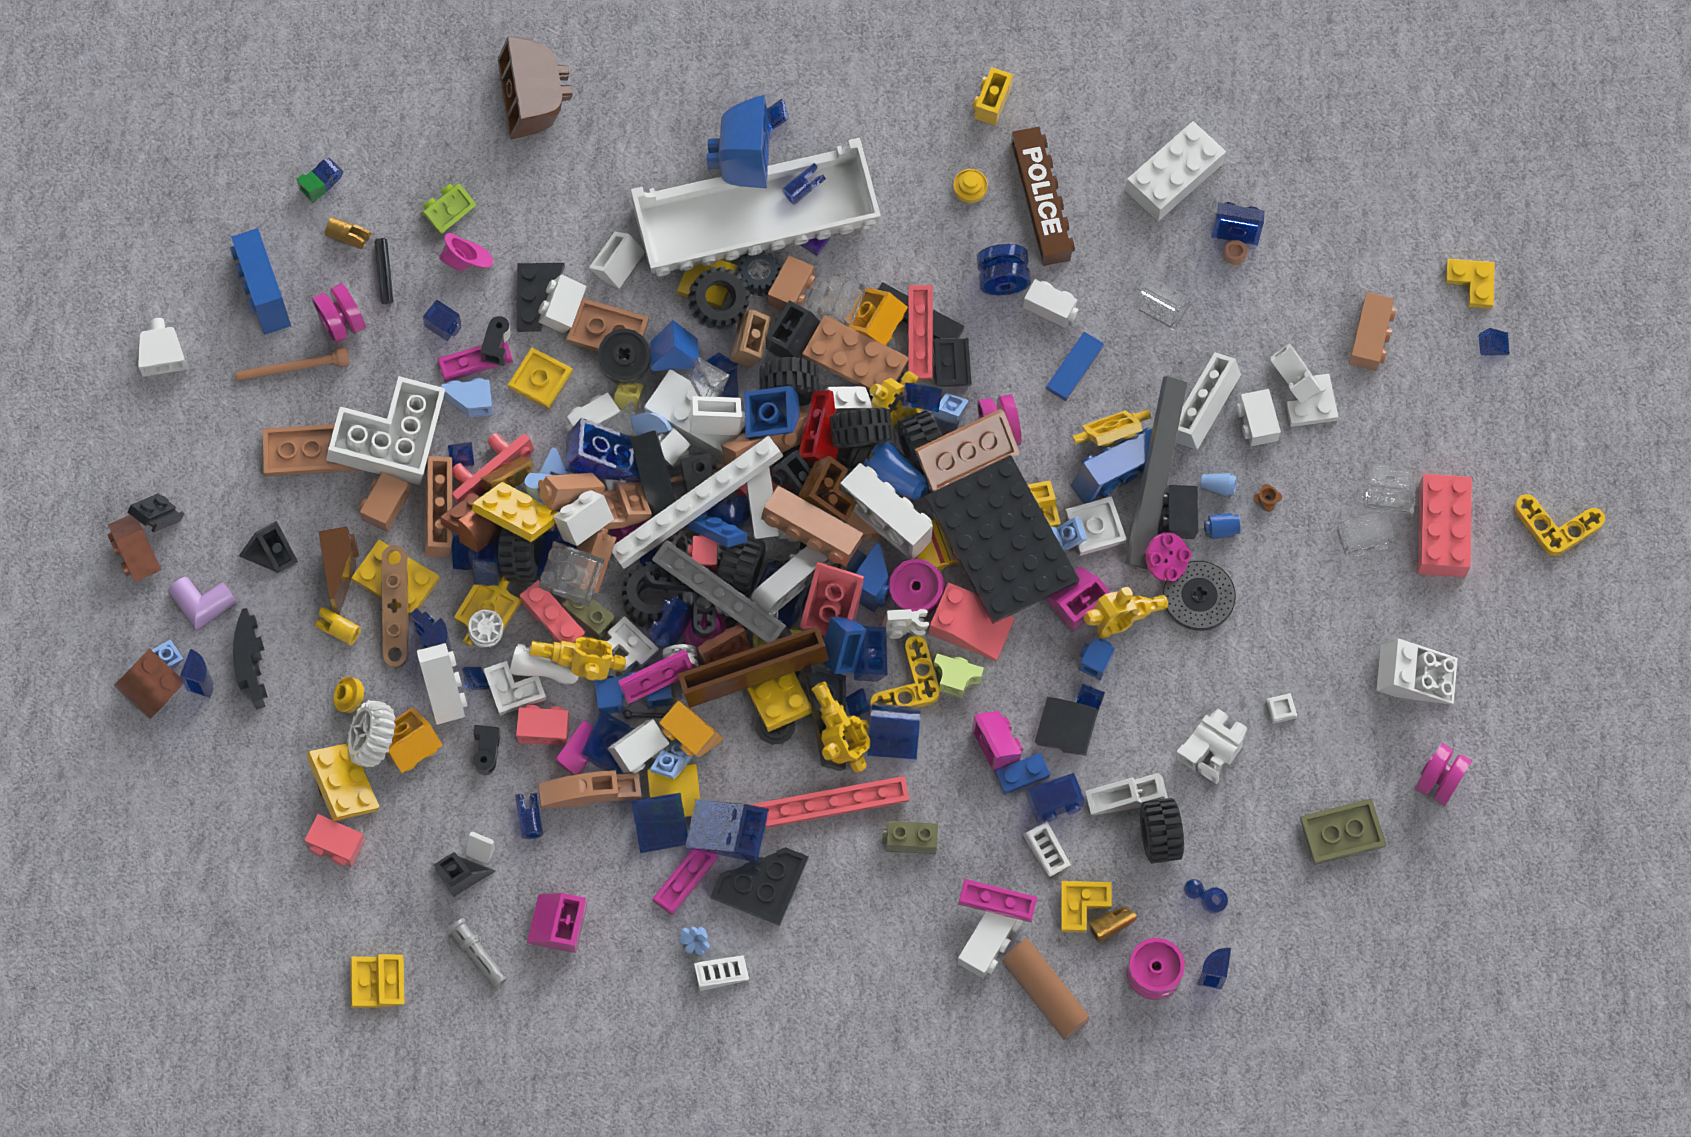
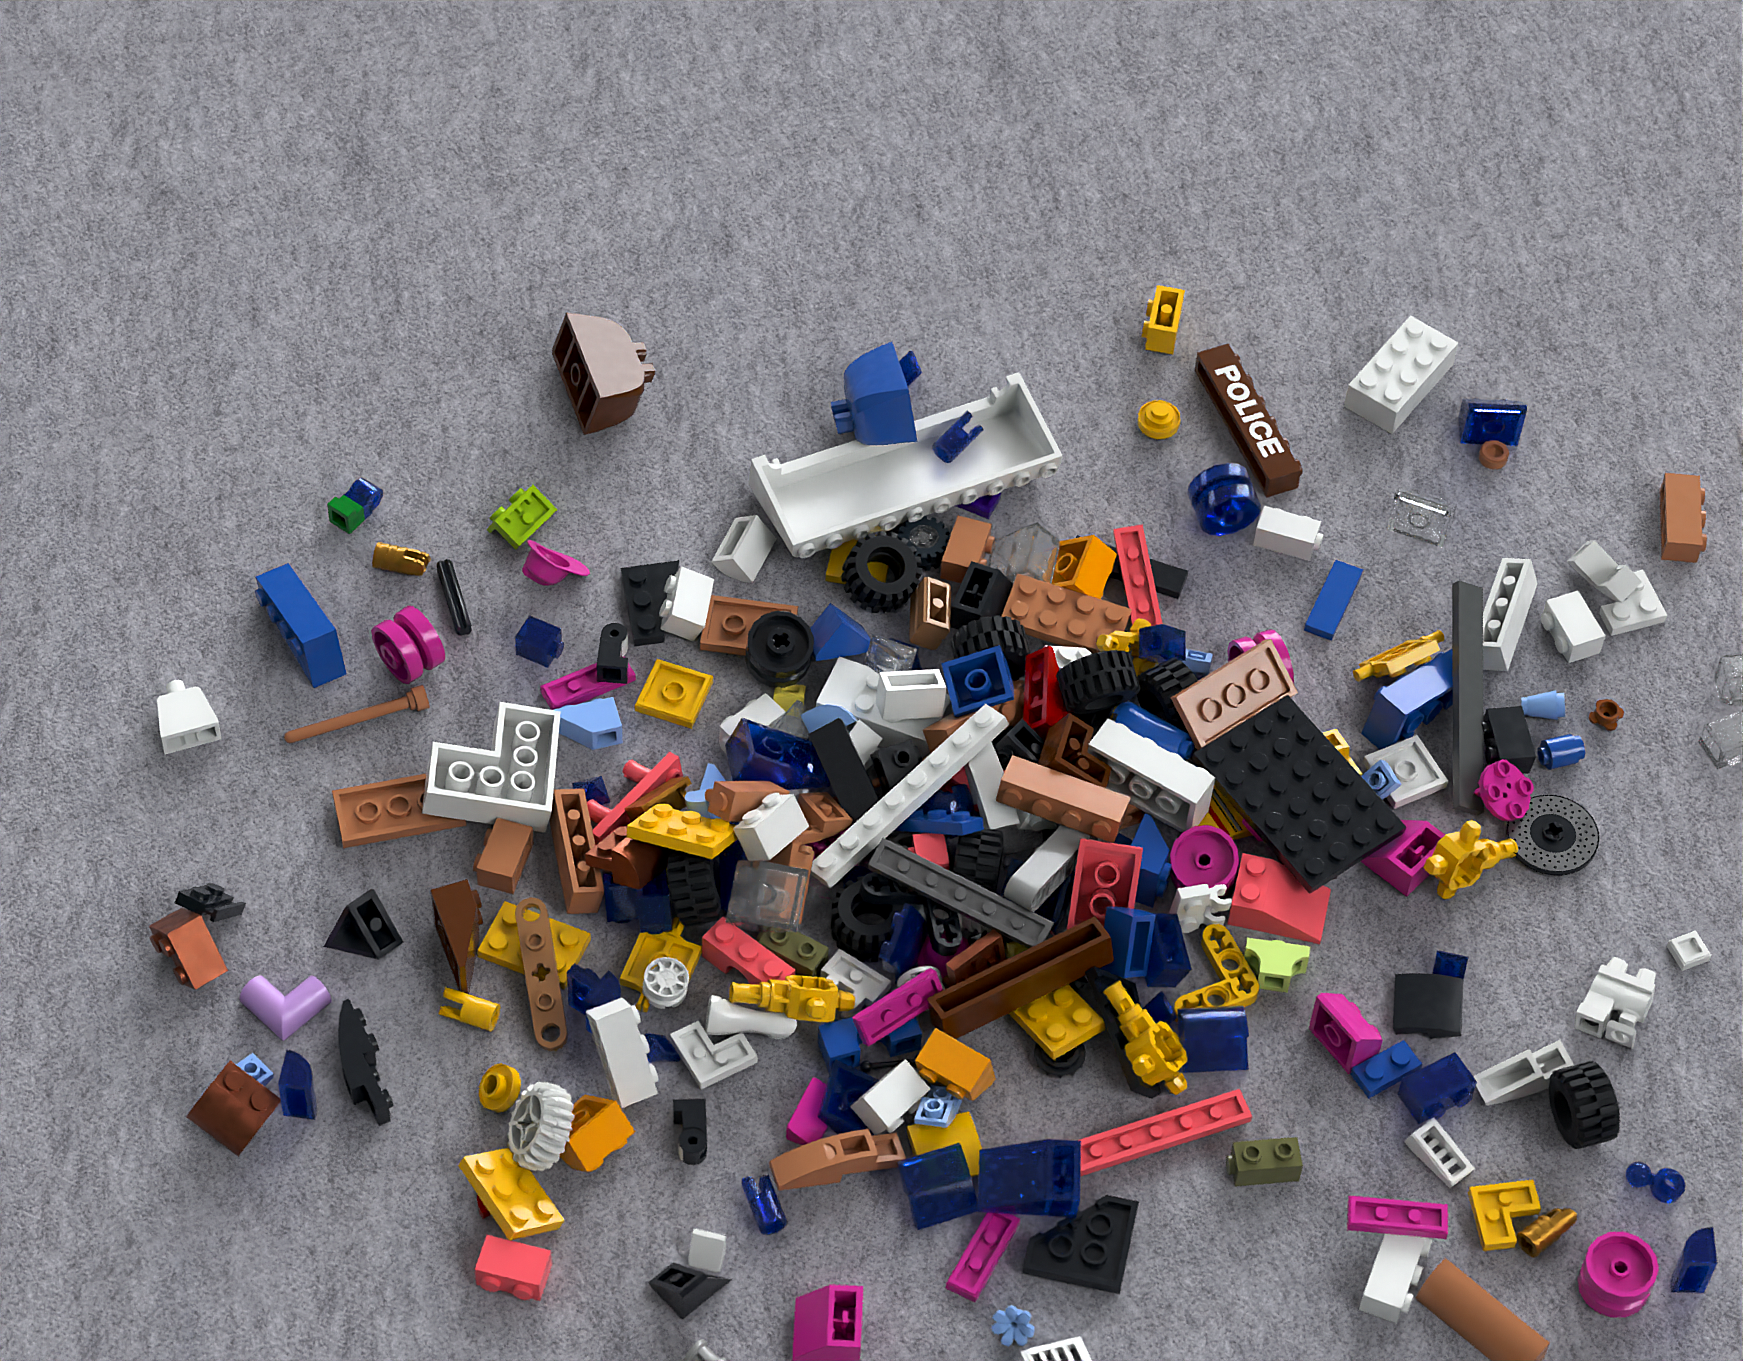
camera: 10 degrees left, 15 degrees down
(542, 725) = (760, 1092): coral brick -> none
(952, 362) = (1185, 609): black plate -> none
(1096, 657) = (1445, 920): blue brick -> none

